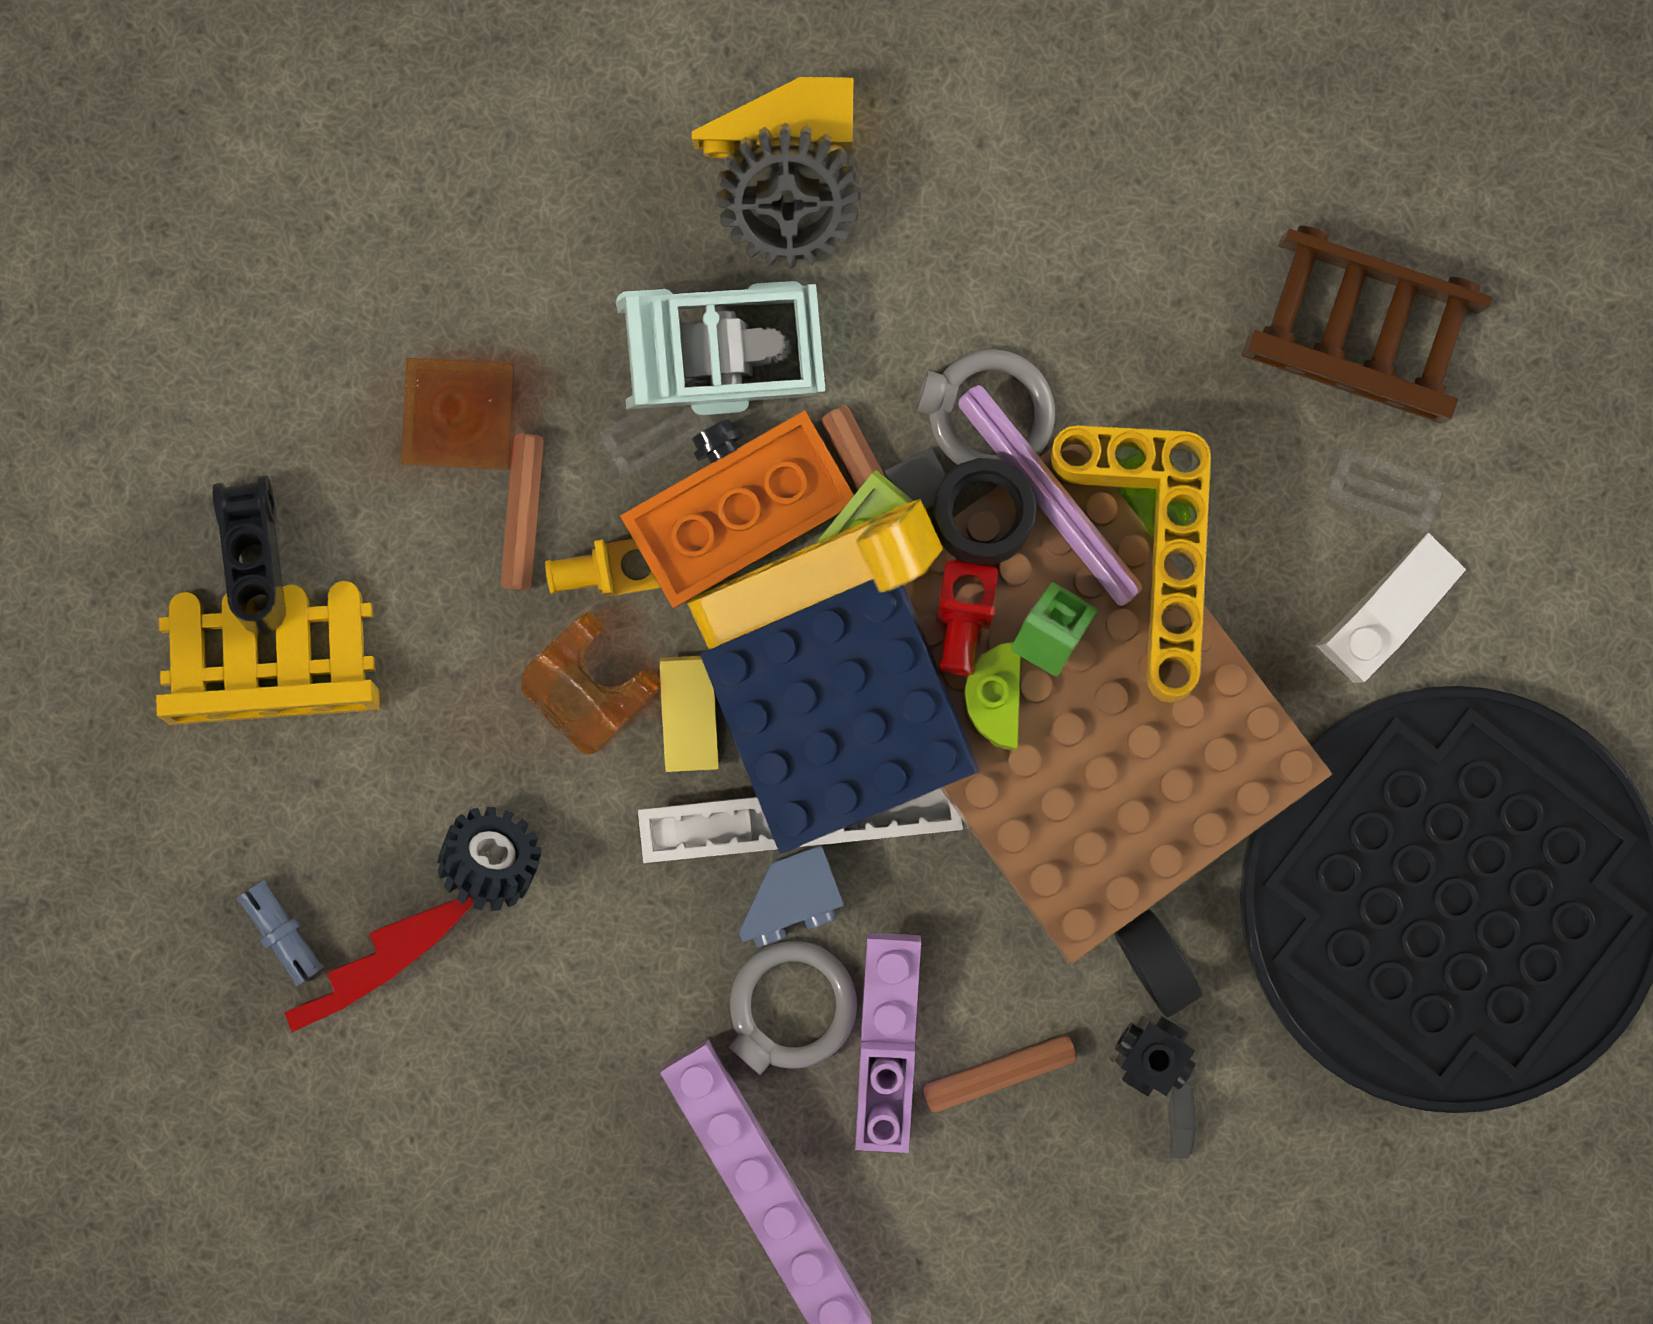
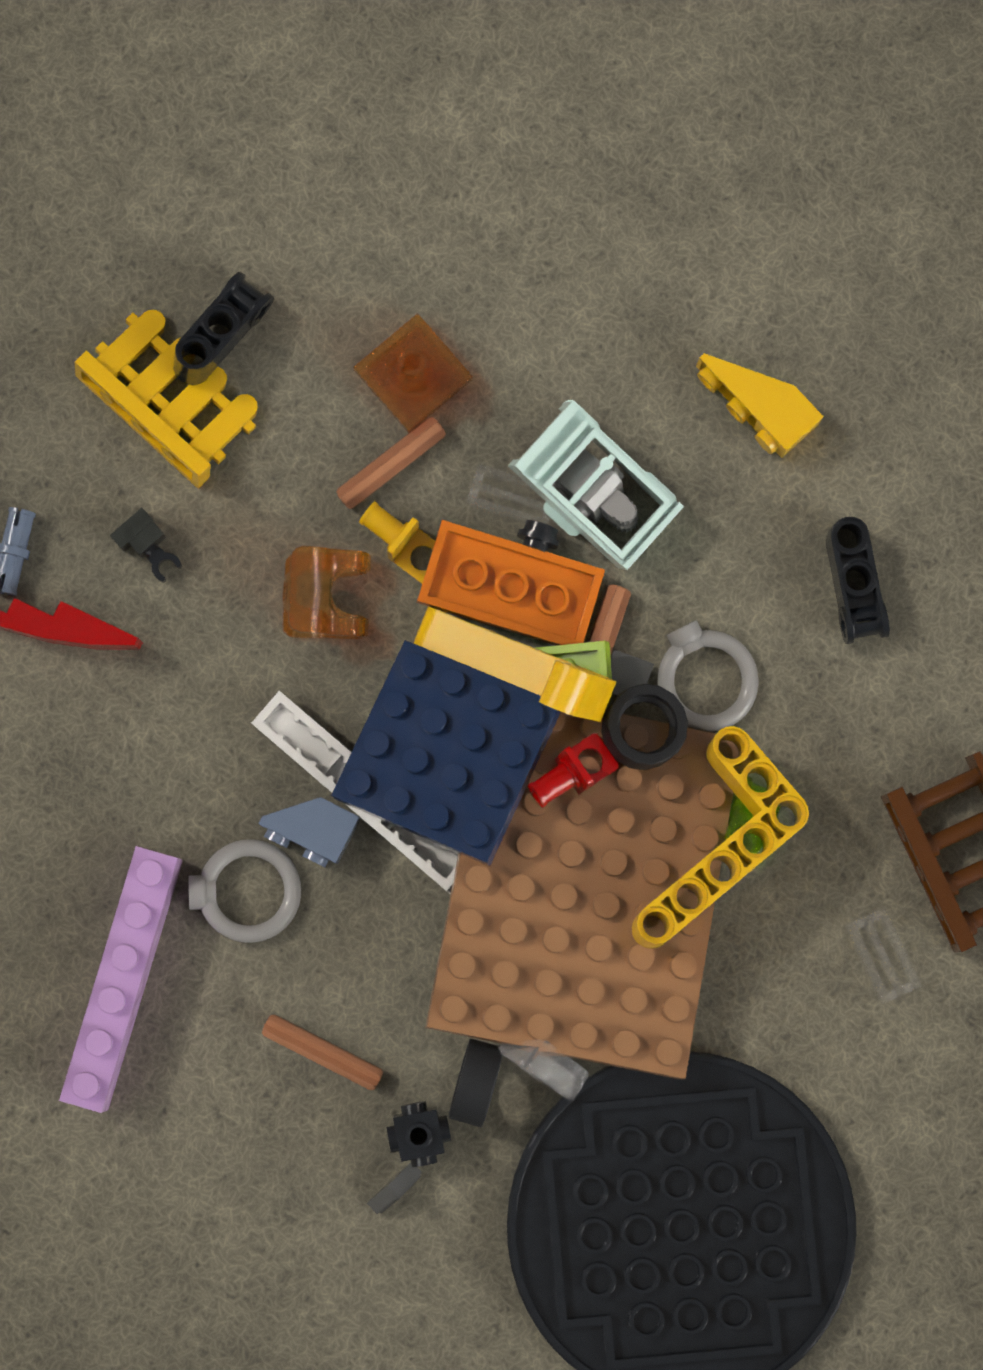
camera: 45 degrees right, 5 degrees down
(379, 801) = (144, 536): none -> pearl dark grey piece
(473, 873) = (151, 630): black bush -> none
(688, 715) = (362, 669): light yellow slope -> none
(807, 192) = (732, 452): dark grey gear -> none
(887, 1042) = (278, 967): lavender slope -> none
(993, 696) = (542, 832): lime plate -> none
(1048, 214) = (856, 604): none -> black piece
(1051, 496) = (691, 758): lavender axle -> none
(1053, 629) = (614, 829): bright green slope -> none
(1199, 888) = (549, 1068): none -> clear slope
(1391, 610) = (817, 1025): white slope -> none

